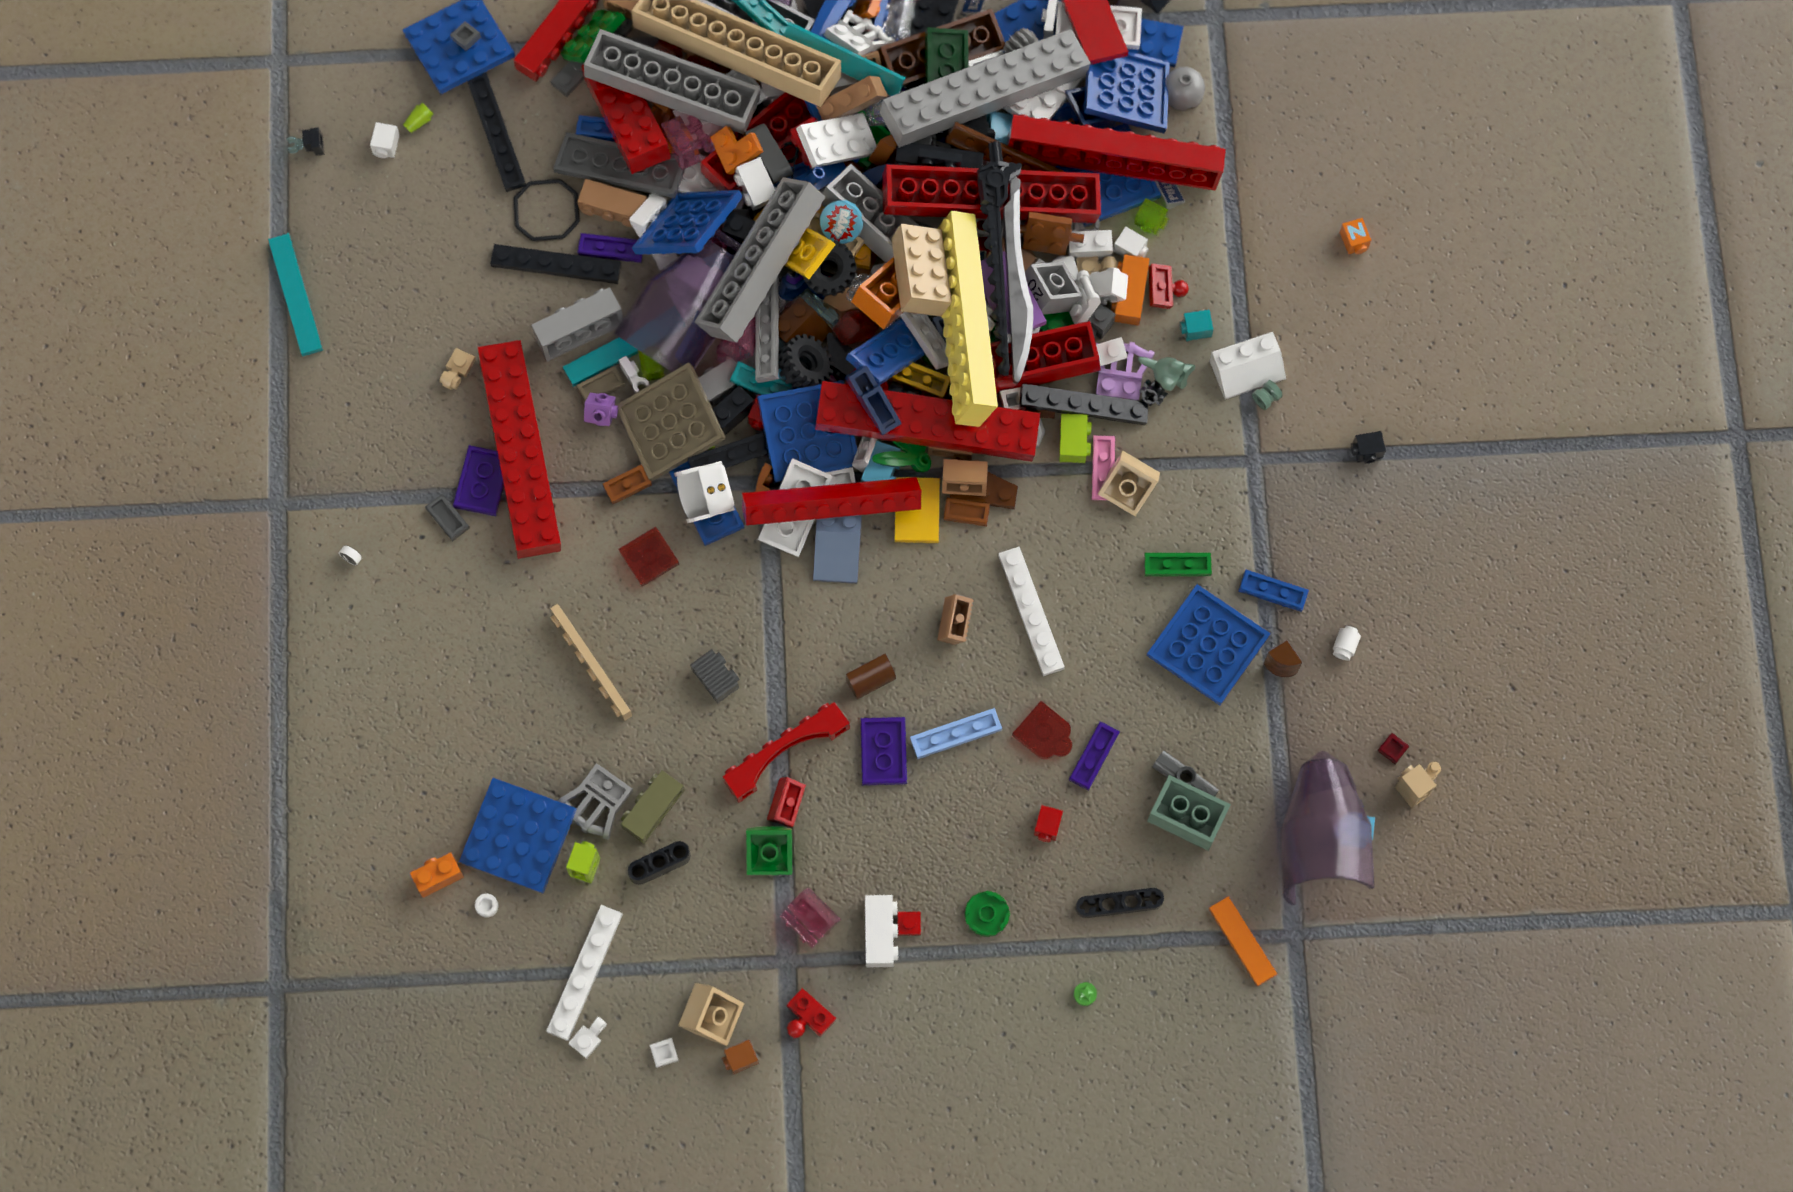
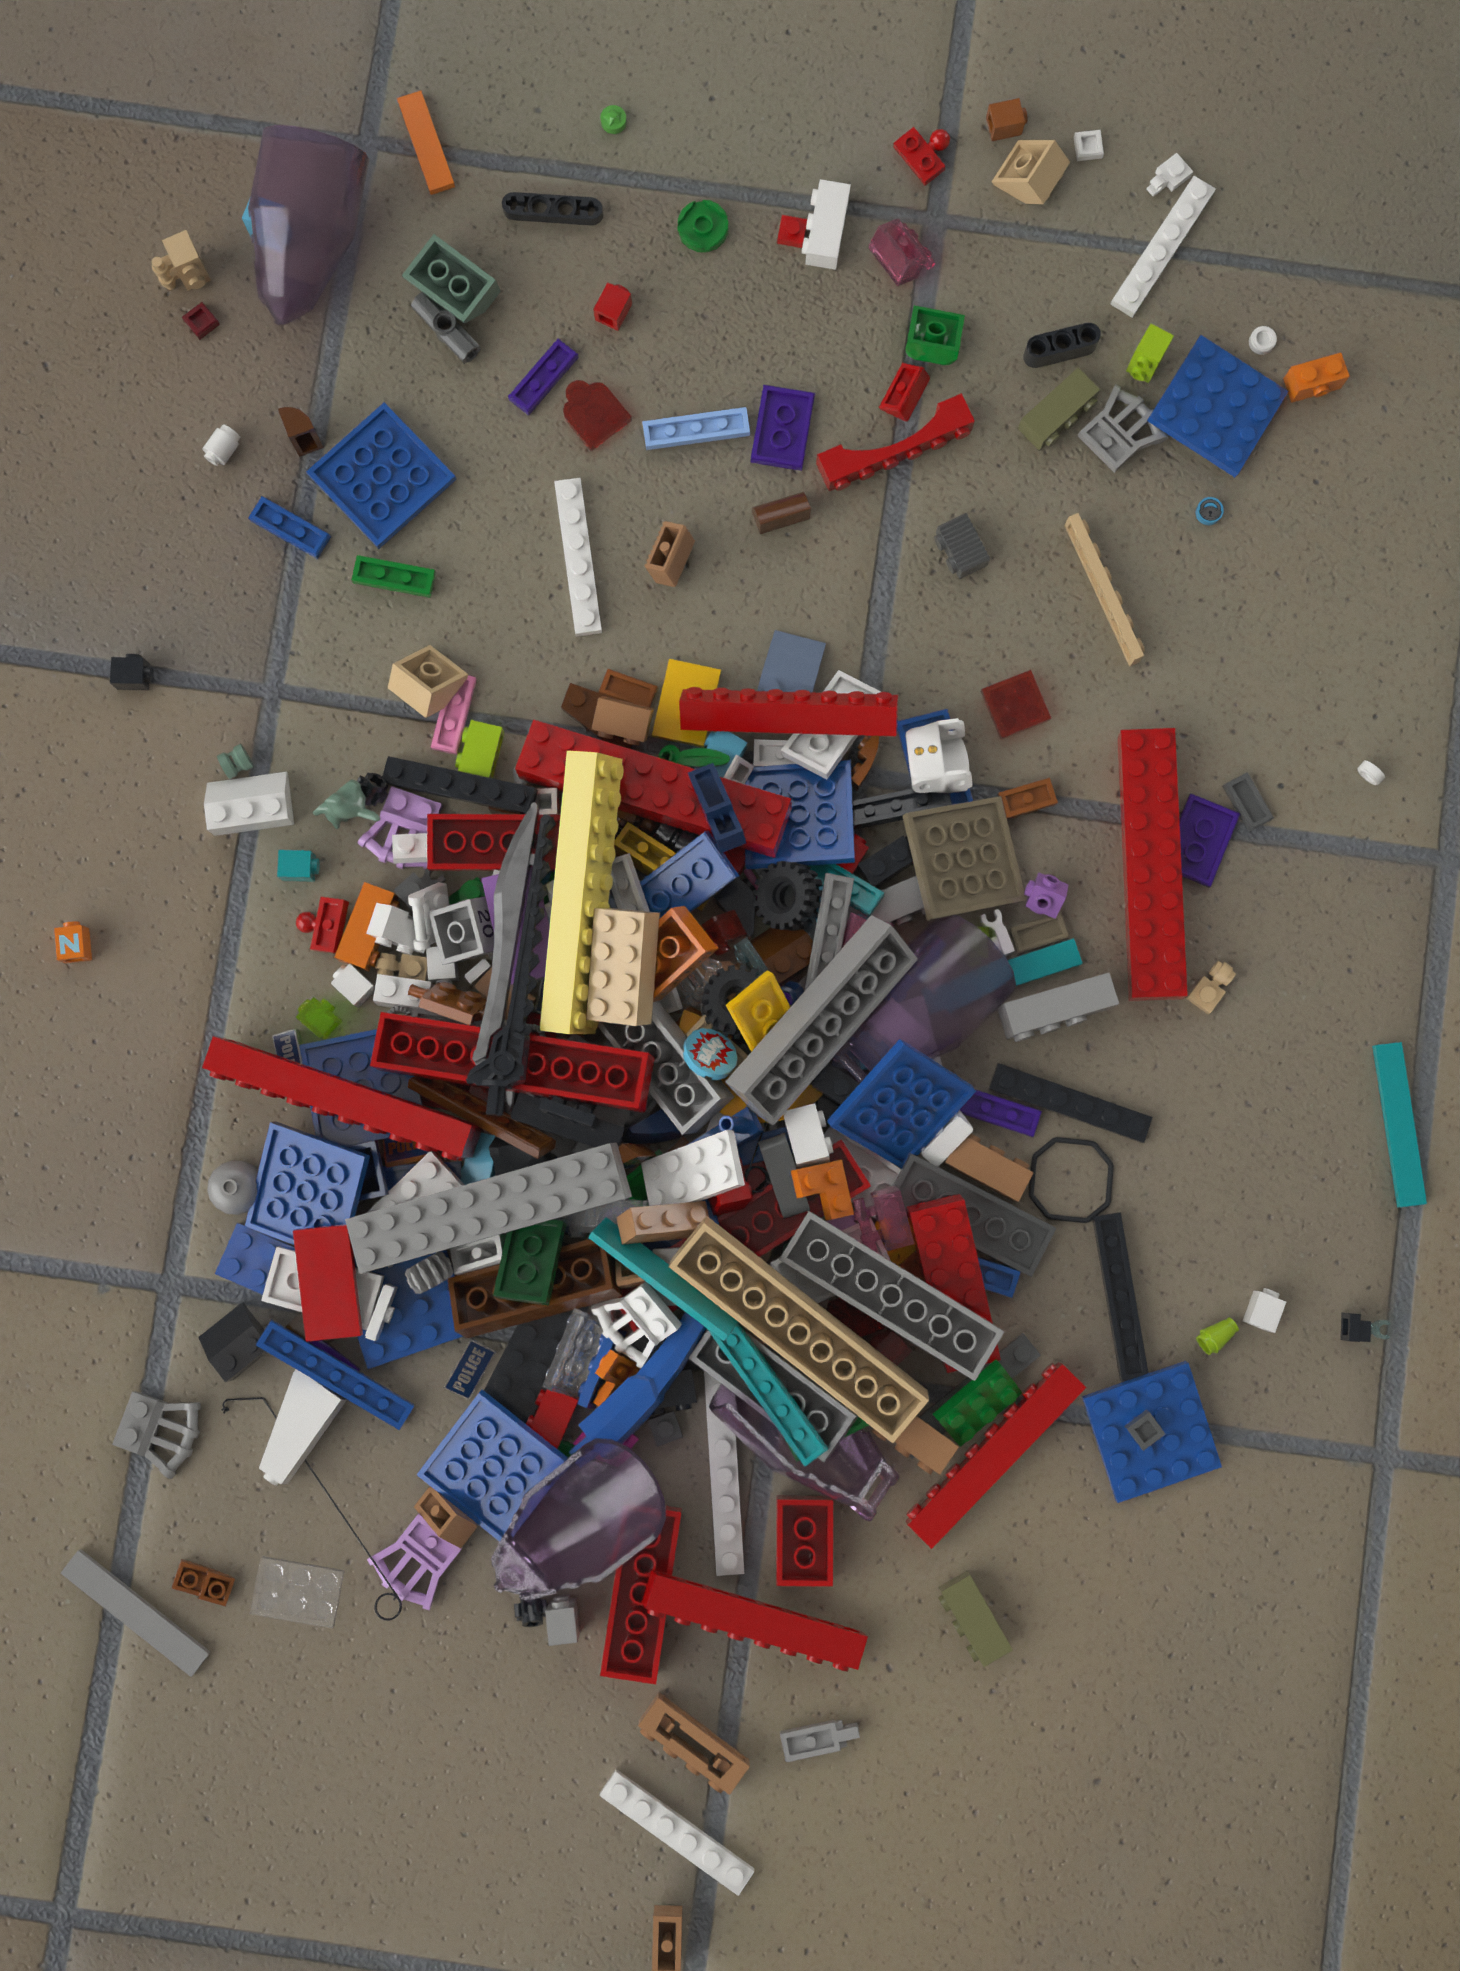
camera: 170 degrees left, 10 degrees up
(512, 748) = (1209, 511): none -> tile

